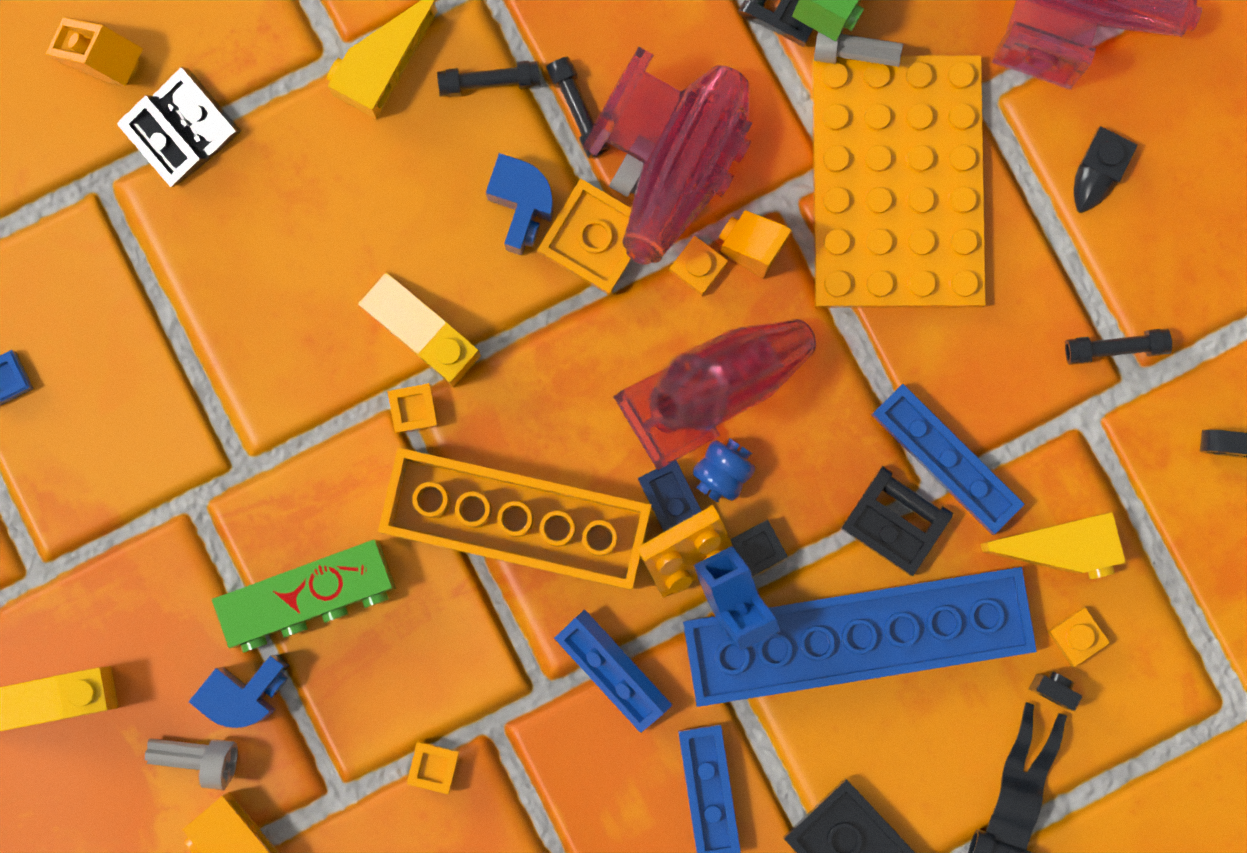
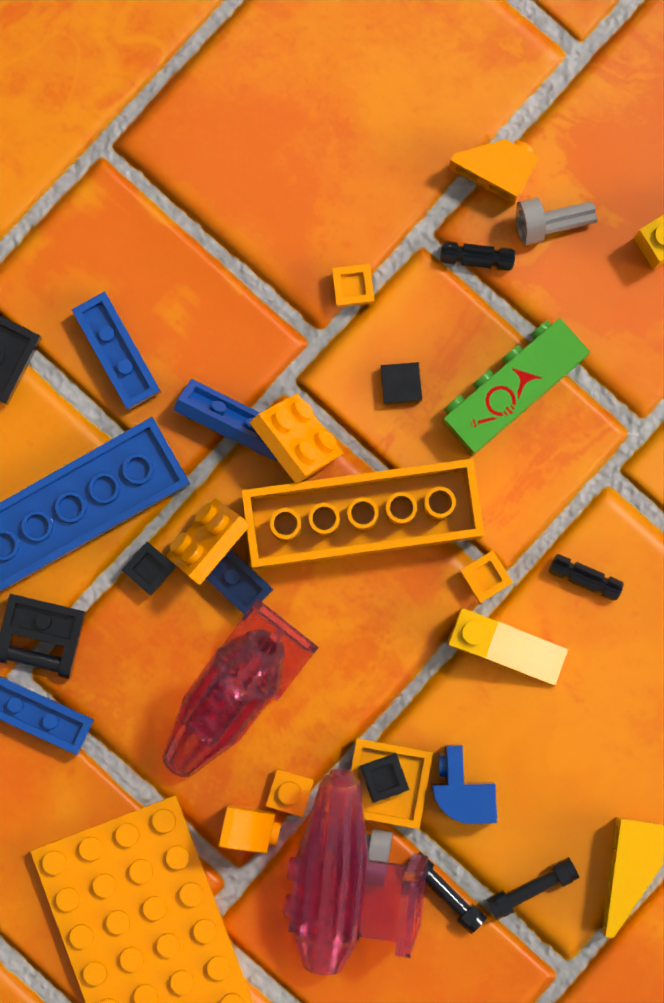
camera: 160 degrees right, 0 degrees up
(238, 705) = (538, 276): blue brick -> none
(289, 750) = (477, 255): none -> black axle
(310, 370) = (586, 577): none -> black axle
(422, 644) = (401, 383): none -> black tile
(554, 625) = (296, 438): none -> light orange plate
(596, 241) = (384, 777): none -> black tile
(724, 470) = (202, 623): blue piece -> none
(735, 599) = (151, 515): blue brick -> none

